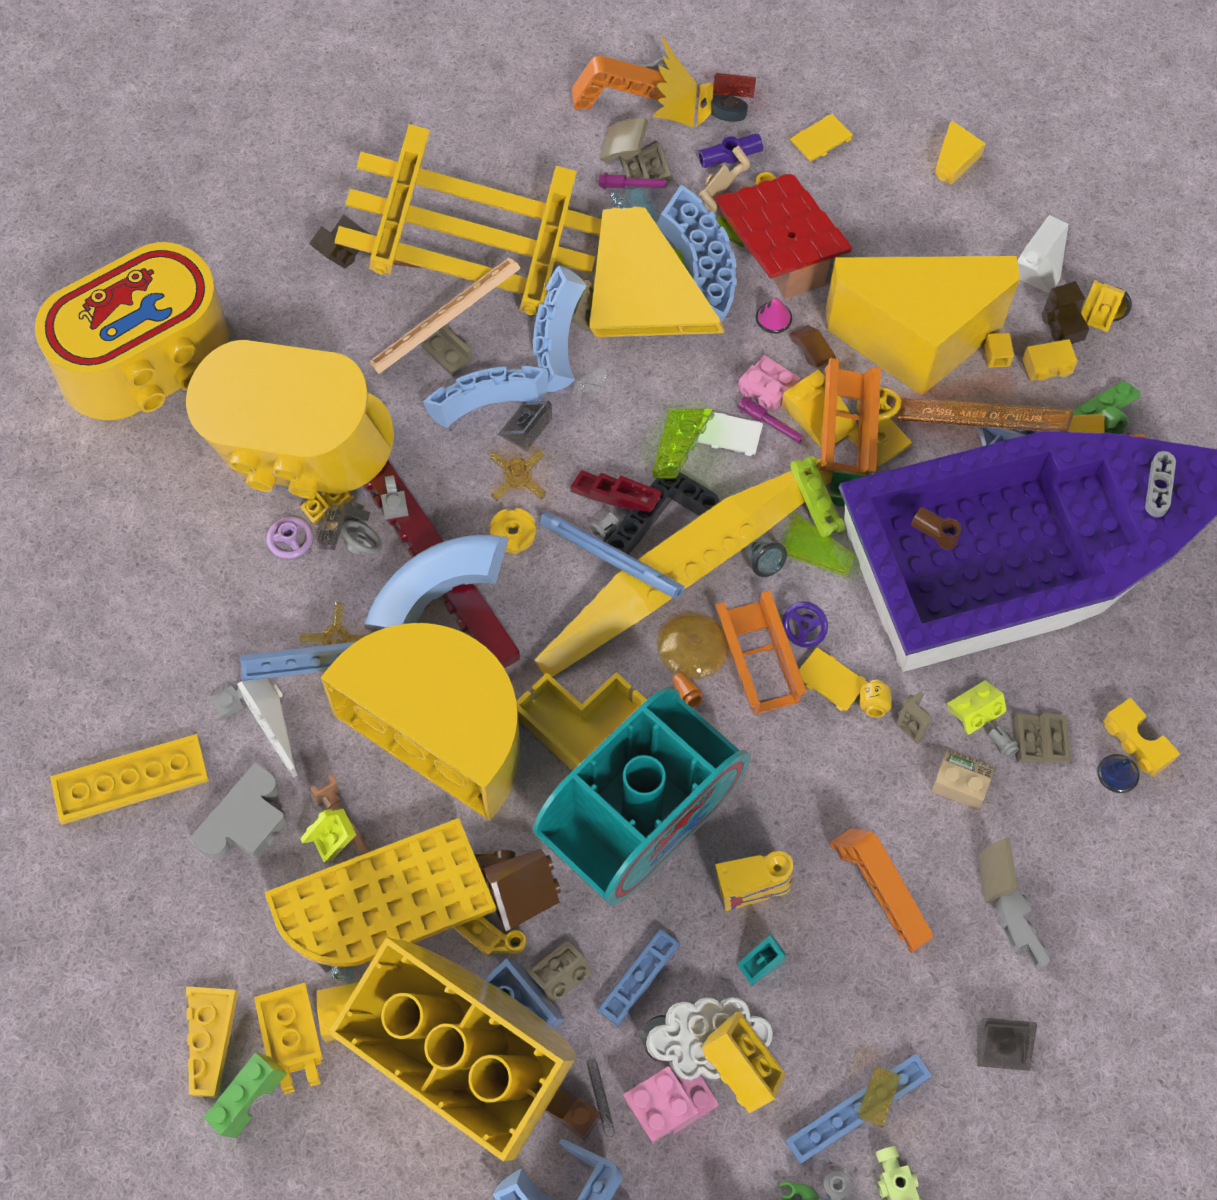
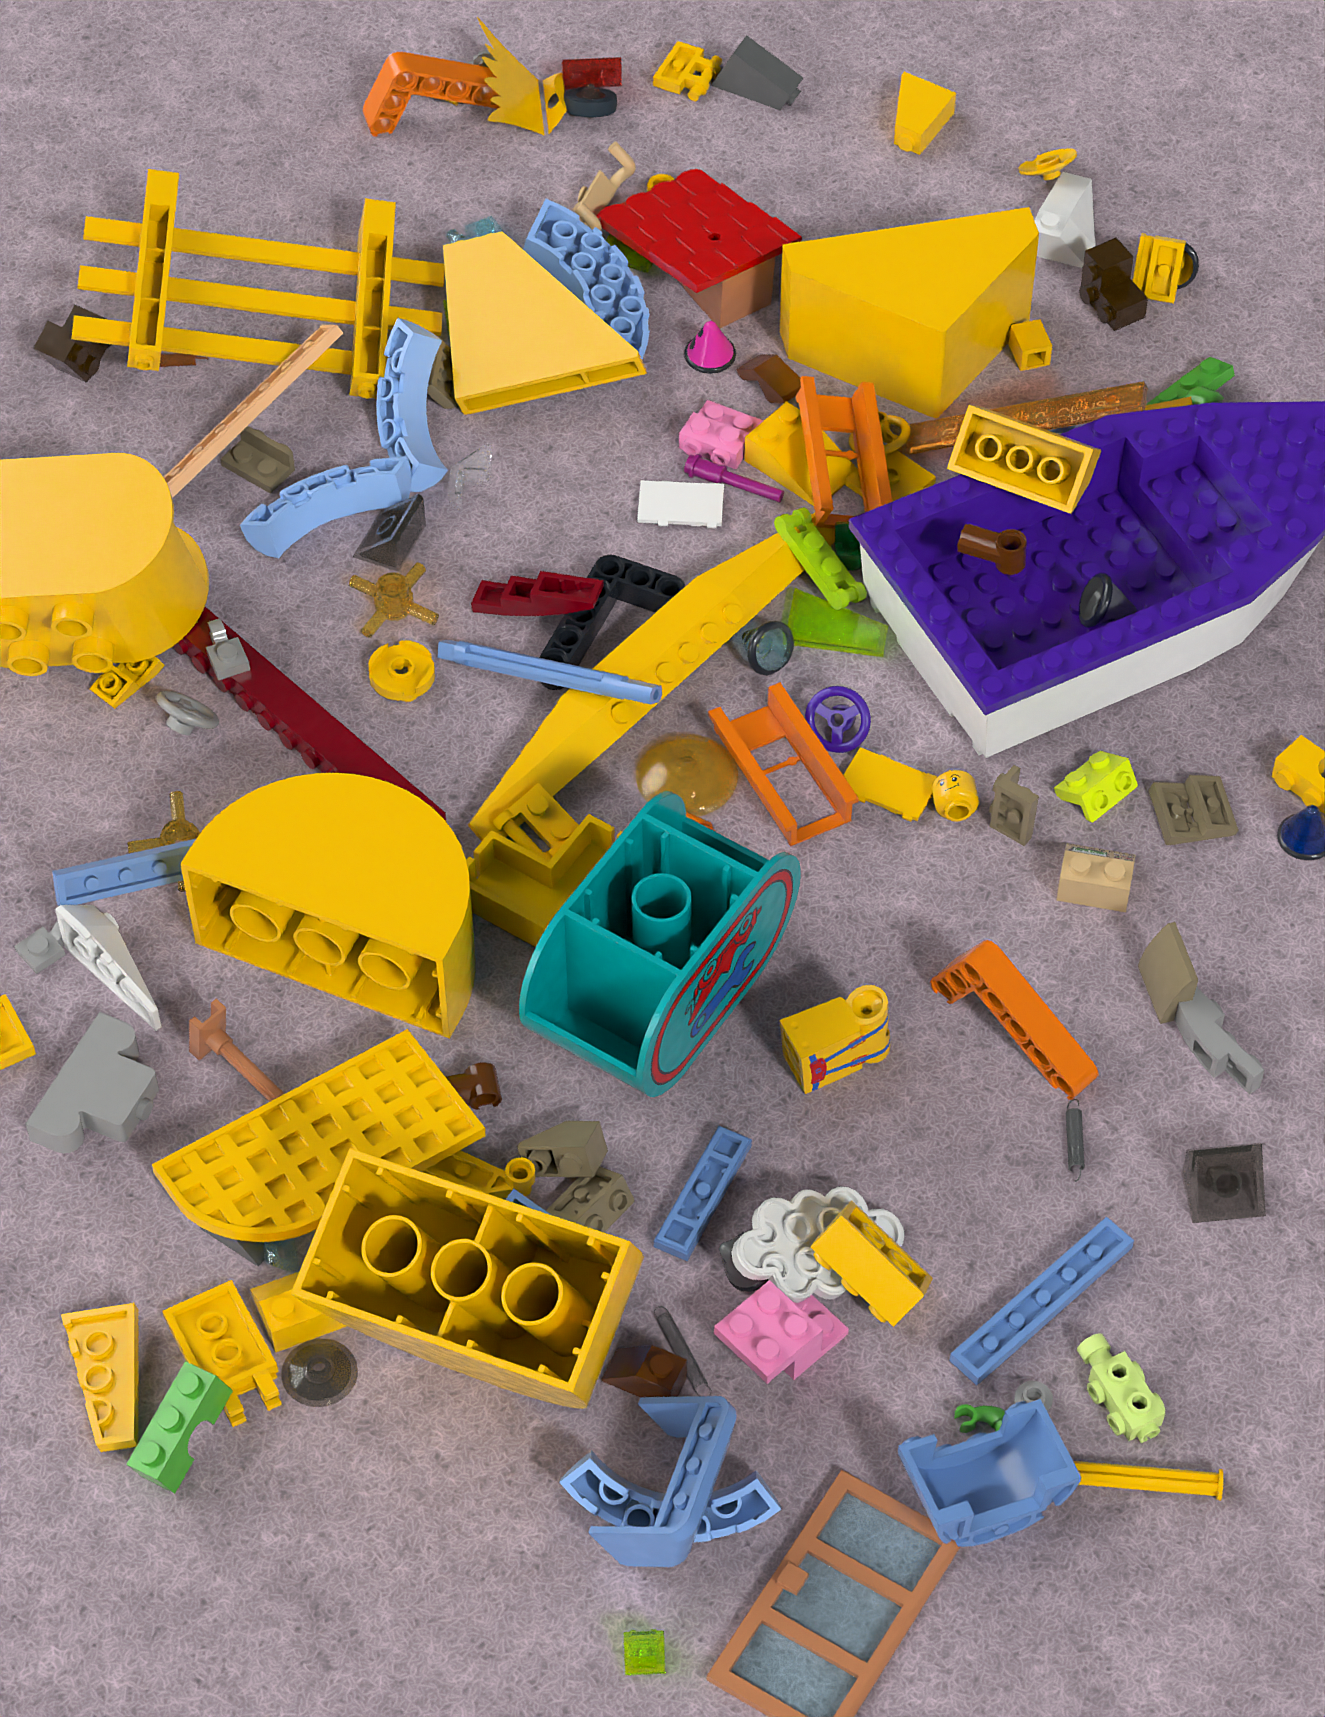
camera: 10 degrees left, 10 degrees down
(288, 526) = (81, 726): lavender piece -> none
(330, 833) = (227, 1082): neon yellow bracket -> none
(334, 520) = (146, 692): clear smoke bracket -> none
(346, 1076) = (323, 1386): none -> clear smoke dish
(433, 574) = (313, 724): light blue brick -> none
(522, 887) = (516, 1101): reddish brown slope -> none
(552, 929) = (566, 1149): none -> dark tan slope
(588, 666) = (543, 816): none -> yellow plate
(605, 526) = (533, 637): light grey bush -> none
(621, 181) = (458, 214): magenta pin -> none
(624, 139) = (451, 160): dark tan slope -> none
(655, 163) = (488, 191): dark tan slope -> none
(678, 438) = (610, 516): clear neon green wing -> none
(723, 152) = (597, 156): dark purple piece -> none
(762, 960) = (871, 1139): teal slope -> none
(795, 91) = (679, 69): none -> yellow plate
(821, 137) = (727, 121): yellow piece -> none
(850, 107) = (759, 76): none -> dark grey slope
(878, 1096) = (1066, 1275): clear yellow tile -> none
(907, 982) = (1075, 1137): none -> dark grey piece
(972, 460) = (1023, 458): none -> yellow slope
(1004, 742) = (1148, 825): light grey pin -> none
(1008, 574) = (1103, 602): none -> dark grey hat
(1040, 207) = (1048, 163): none -> yellow dish
(1050, 360) = (1102, 345): yellow brick -> none
(1153, 491) = (1274, 460): light grey beam -> none

